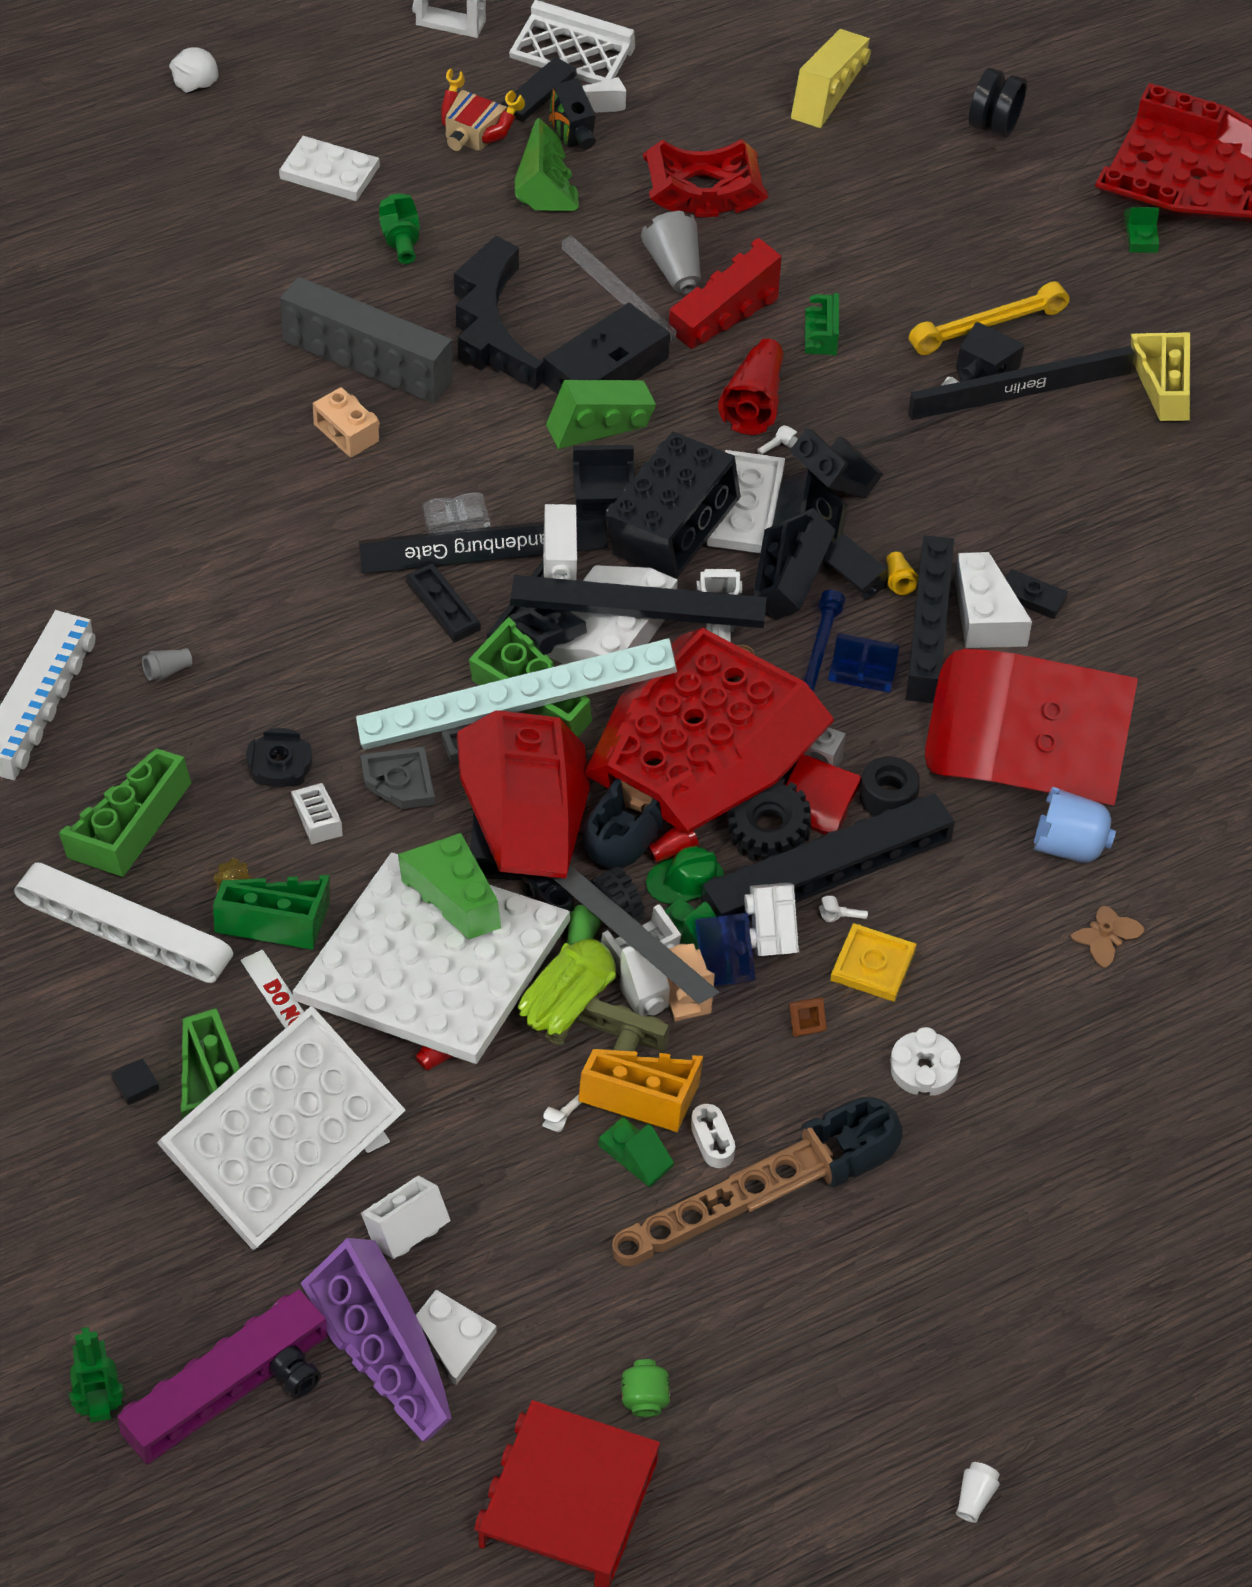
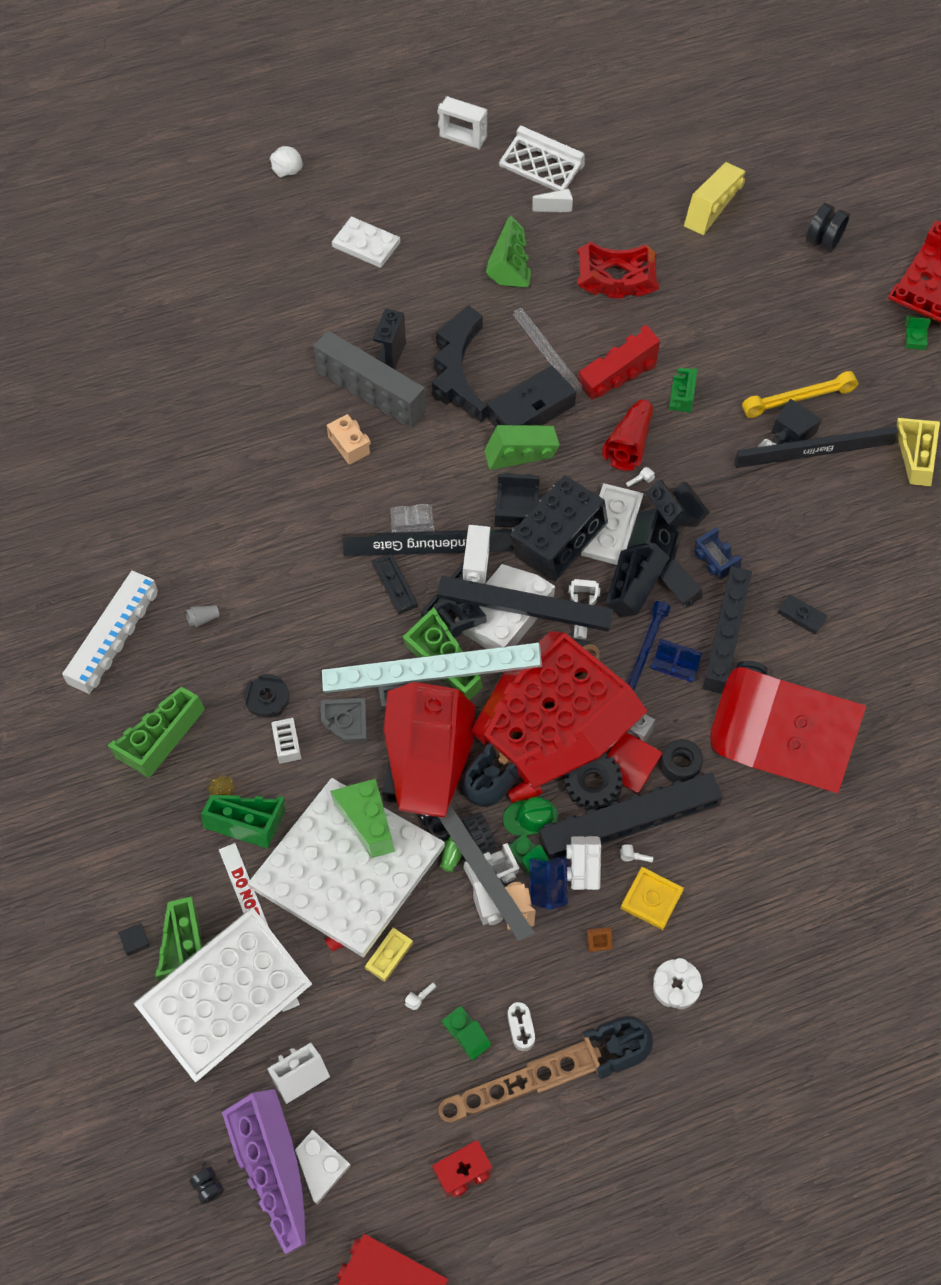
camera: 10 degrees right, 10 degrees up
(94, 1378) = (69, 1179): green piece -> none
(124, 922) = (144, 815): white beam -> none
(219, 1377) = (155, 1184): magenta brick -> none
(391, 273) = (392, 336): none -> black panel
(400, 225) = (406, 291): green piece -> none
(473, 119) = (466, 212): torso -> none
(510, 1064) = (389, 954): none -> light yellow plate
(539, 87) = (515, 192): black tile -> none
(567, 986) = (435, 901): lime hair -> none
(572, 114) = (533, 215): black torso -> none
(621, 1022) = (448, 917): olive plate -> none
(641, 1087) = (475, 985): light orange wedge -> none
(645, 1388) = (445, 1229): bright green head -> none
(658, 1314) = (469, 1157): none -> red brick
(675, 249) = (589, 325): light grey cone -> none
(897, 527) = (716, 554): none -> dark blue window
(901, 576) = (711, 592): yellow cone -> none
(988, 605) = (769, 622): white wedge -> none
(1074, 827) = (806, 809): light blue cylinder -> none
(1105, 932) = (819, 891): medium nougat piece -> none

